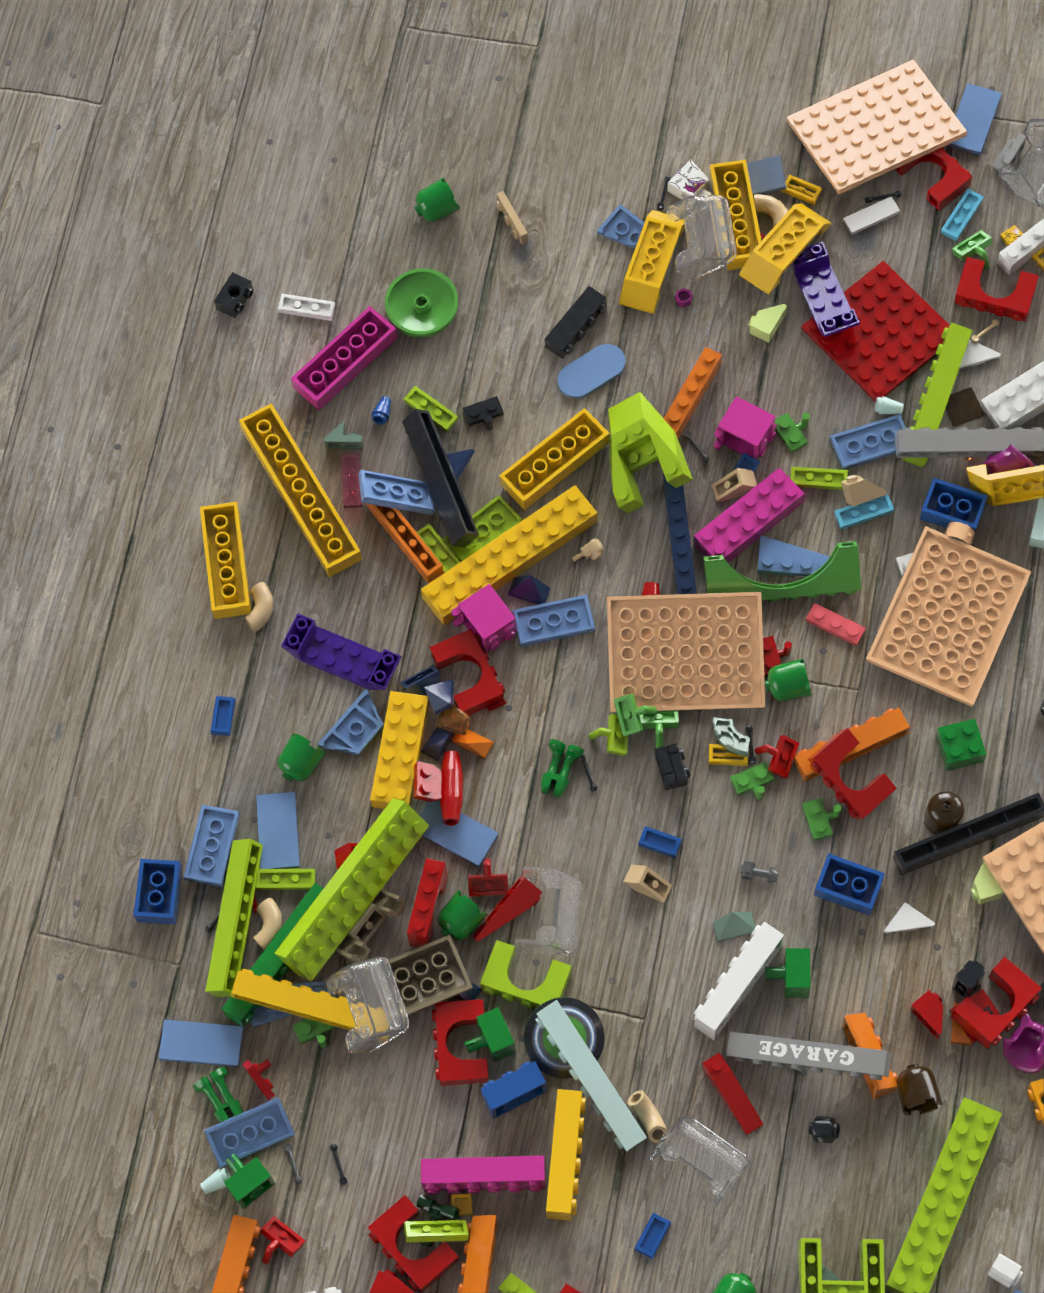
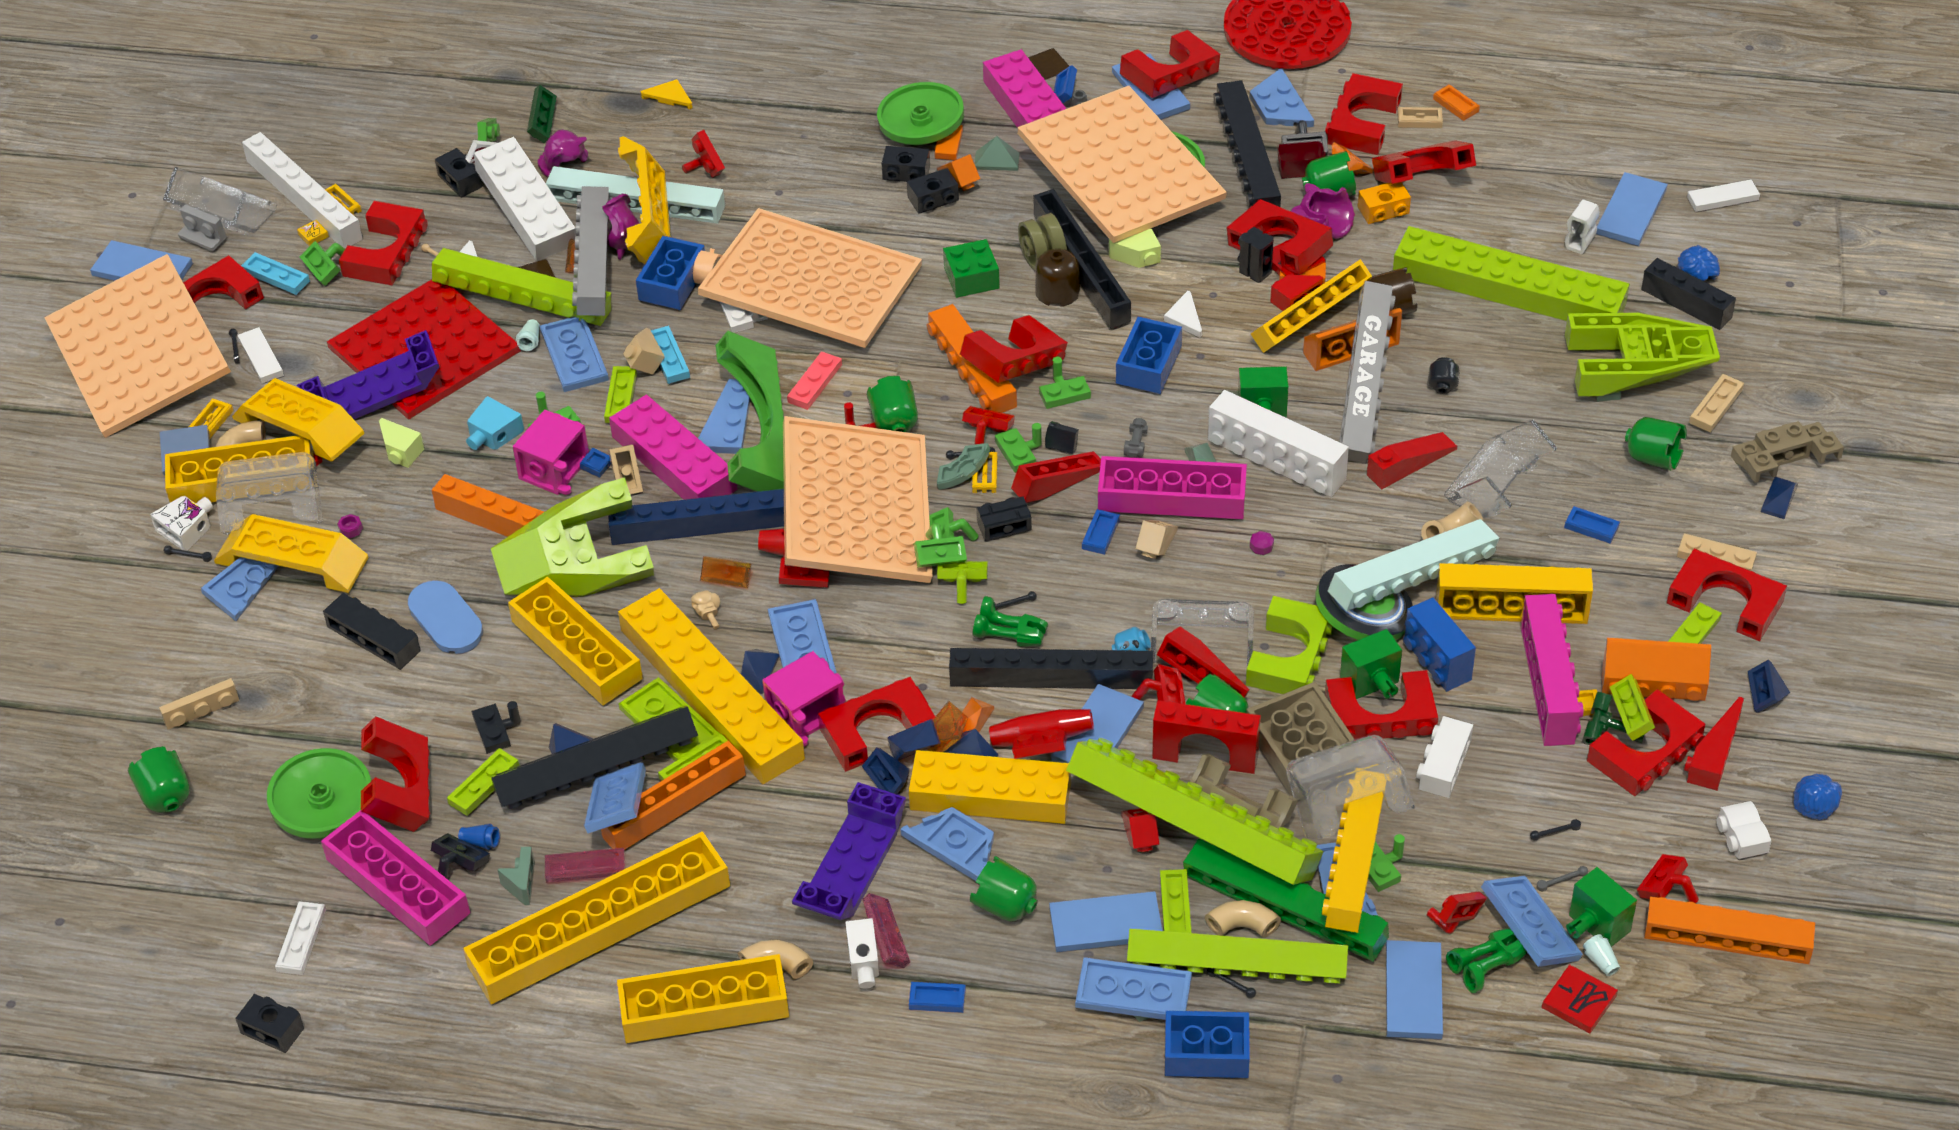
camera: 95 degrees left, 20 degrees down
(183, 1161) = (1579, 999): none -> red tile
(255, 662) = (862, 951): none -> white torso
(278, 680) = (886, 930): none -> clear pink plate
(366, 398) = (458, 851): none -> black plate
(408, 362) = (409, 754): none -> red arch
(409, 1086) = (1444, 756): none -> white brick
(511, 798) = (1049, 668): none -> black brick
(530, 855) = (1132, 639): none -> dark azure head
(628, 563) = (726, 571): none -> clear orange slope
(641, 966) = (1261, 542): none -> magenta tile
(695, 895) = (1172, 487): none -> dark pink brick
(719, 810) = (1050, 476): none -> red slope
(759, 812) = (1061, 437): none -> black tile
(785, 386) = (493, 425): none -> medium azure torso
(907, 1023) = (1311, 306): none -> yellow brick
(984, 797) = (1039, 237): none -> olive wheel

